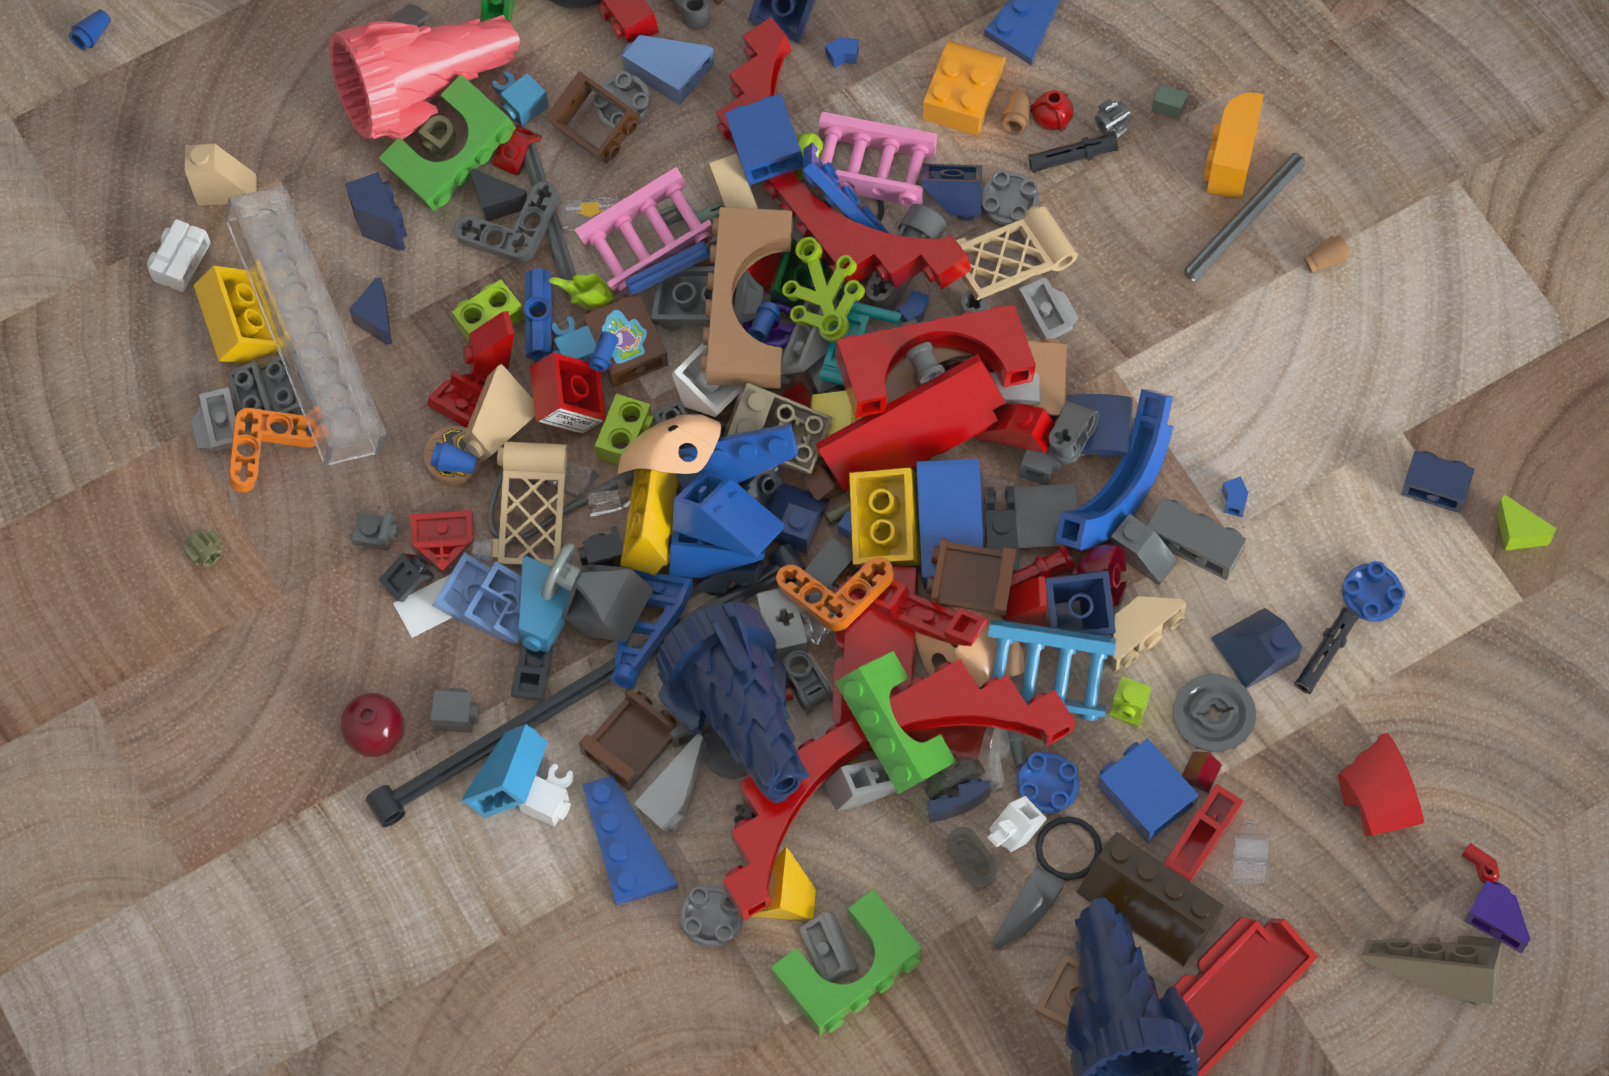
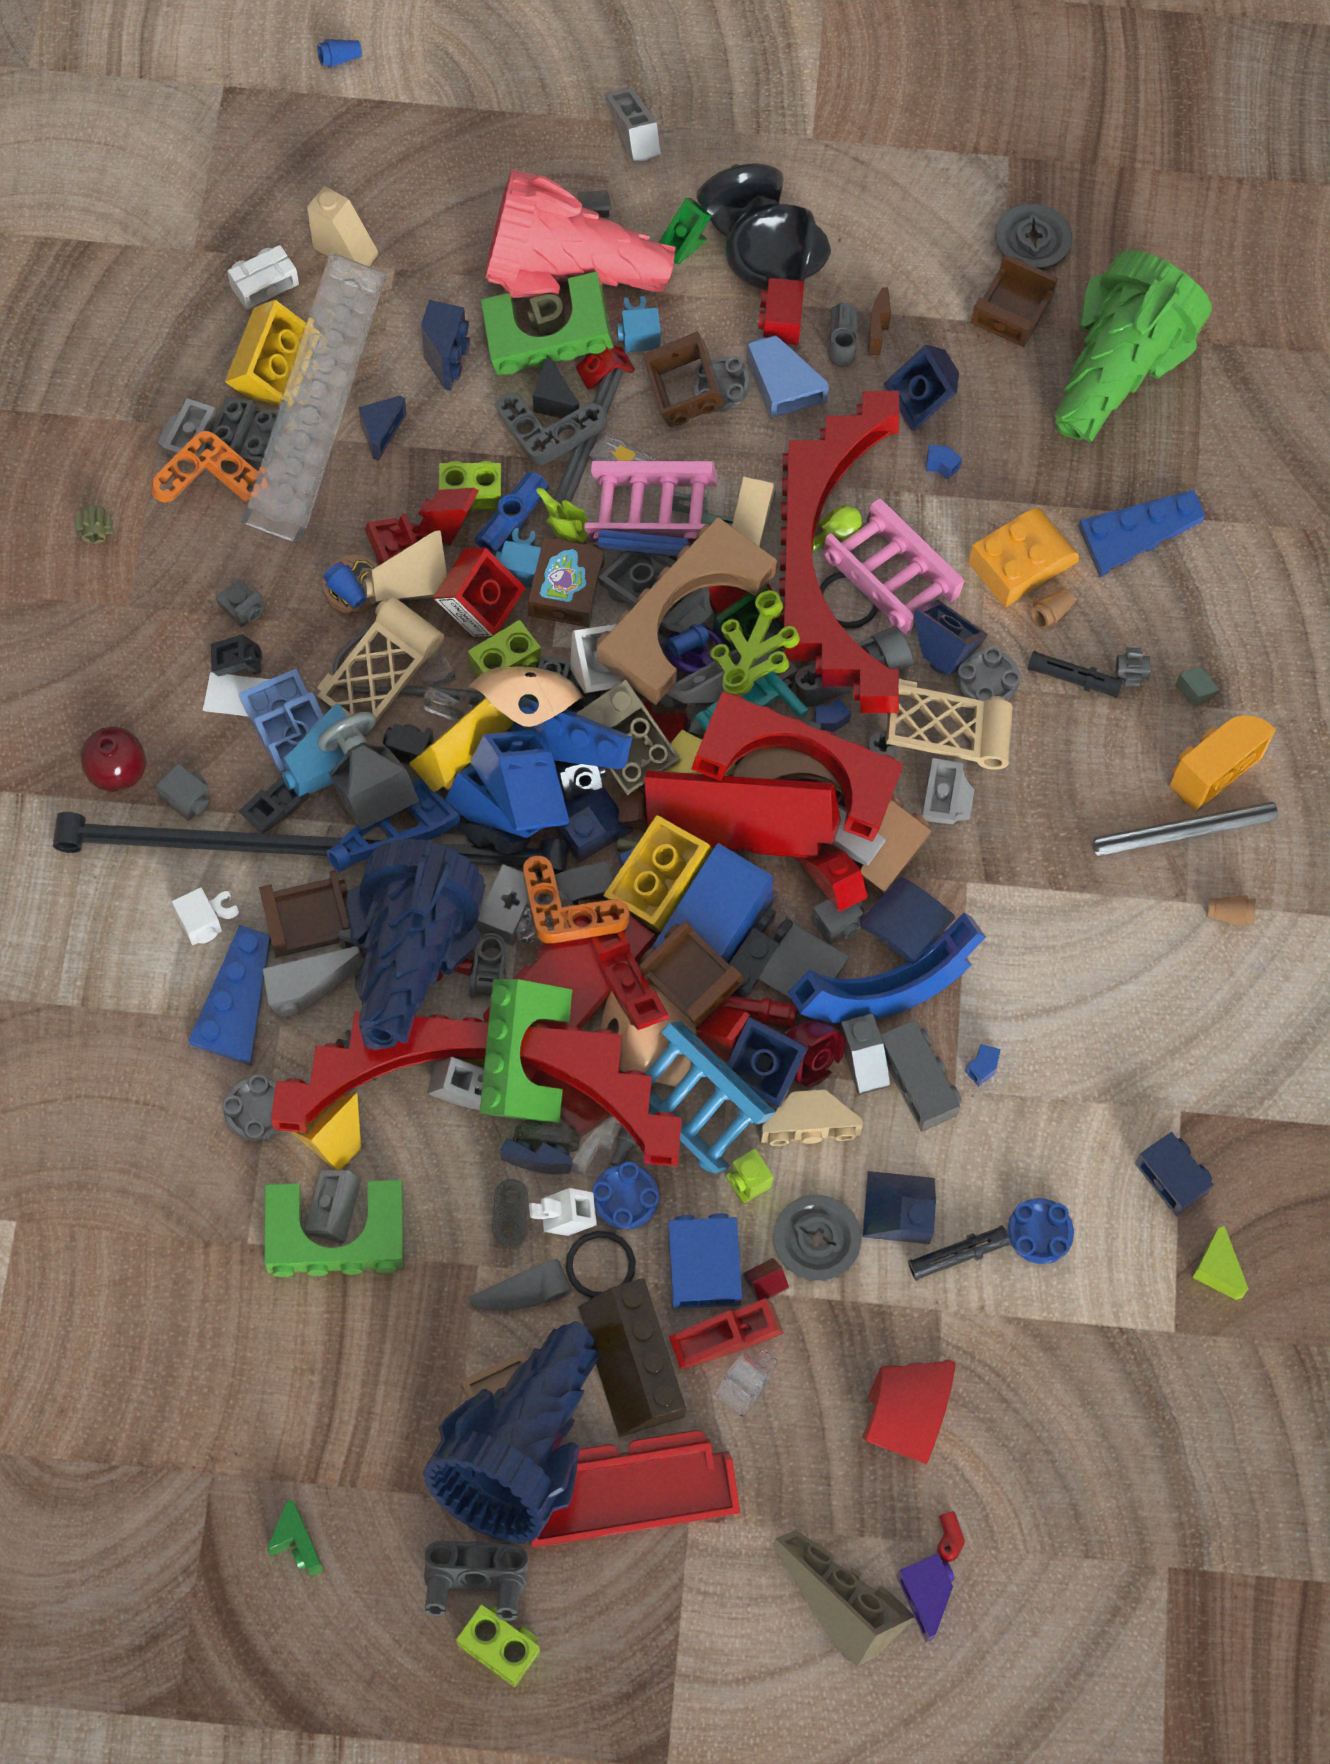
camera: 30 degrees right, 0 degrees up
(442, 535) = (291, 643): red slope -> none
(483, 548) = (313, 675): clear plate -> none
(507, 772) = (184, 871): dark azure slope -> none
(603, 352) = (534, 577): blue pin -> none
(765, 139) = (807, 487): blue brick -> none
(834, 192) = (833, 572): blue wing -> none
(924, 363) = (784, 761): dark grey connector -> none
(1052, 115) = (1084, 632): red piece -> none
(1072, 432) = (877, 905): dark grey piece -> none

